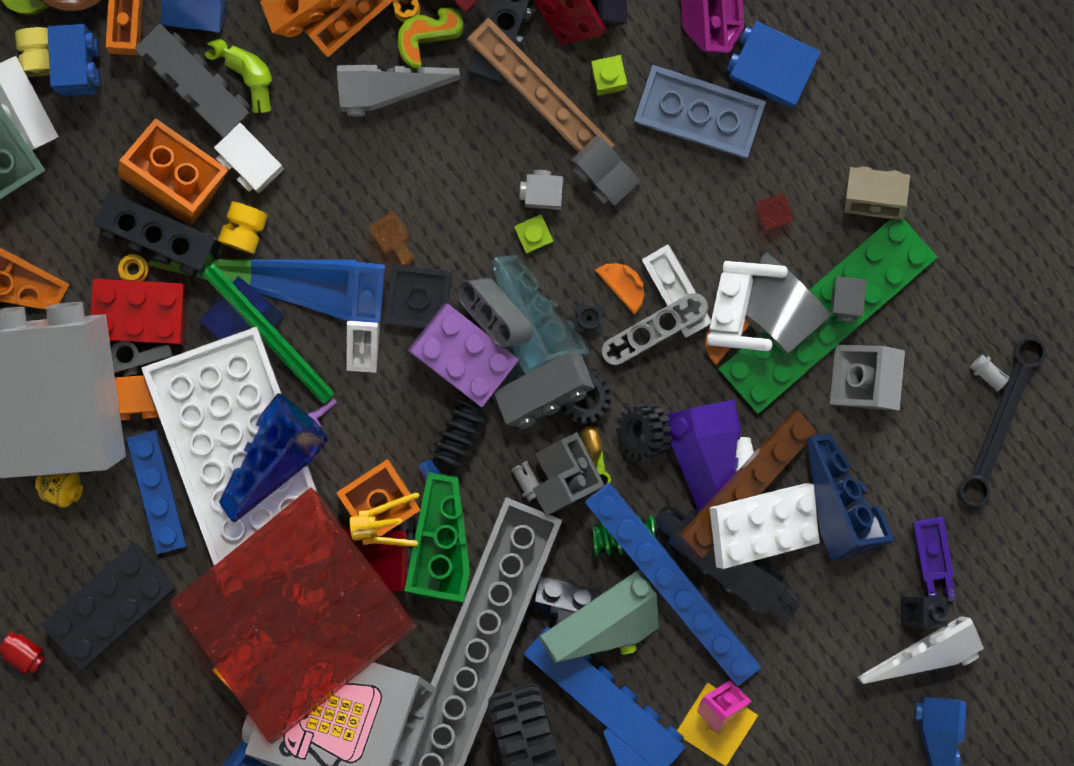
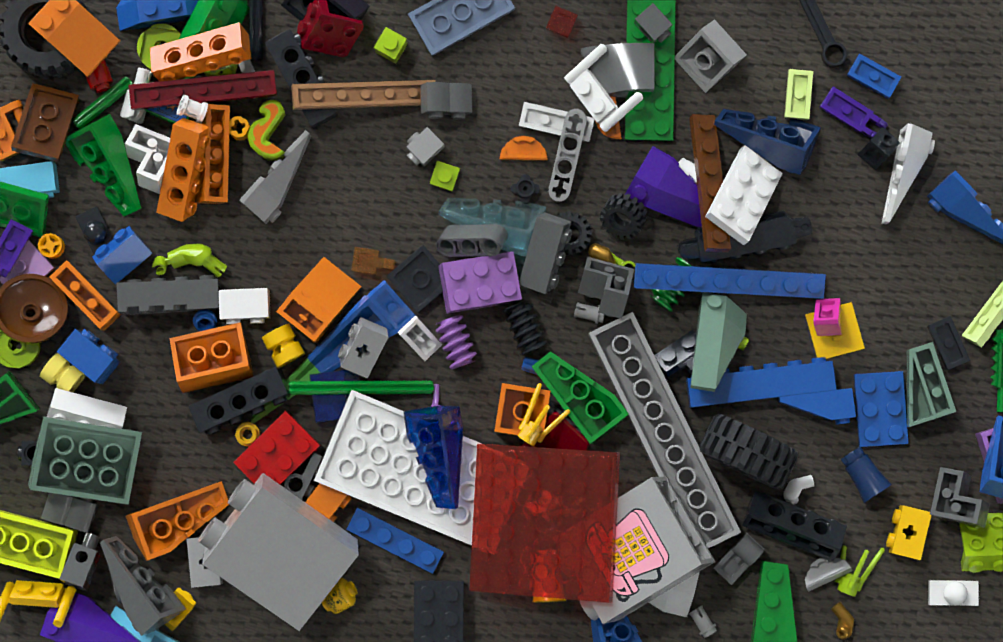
camera: 45 degrees left, 0 degrees up
(195, 135) = (204, 314): none -> blue plate
(314, 222) = (319, 299): none -> orange slope
(322, 301) = (363, 360): none -> light grey brick
(389, 382) = (456, 342): none -> medium lavender piece
(906, 491) = (798, 94): none -> yellowish green plate
(987, 546) = (873, 76): none -> blue plate

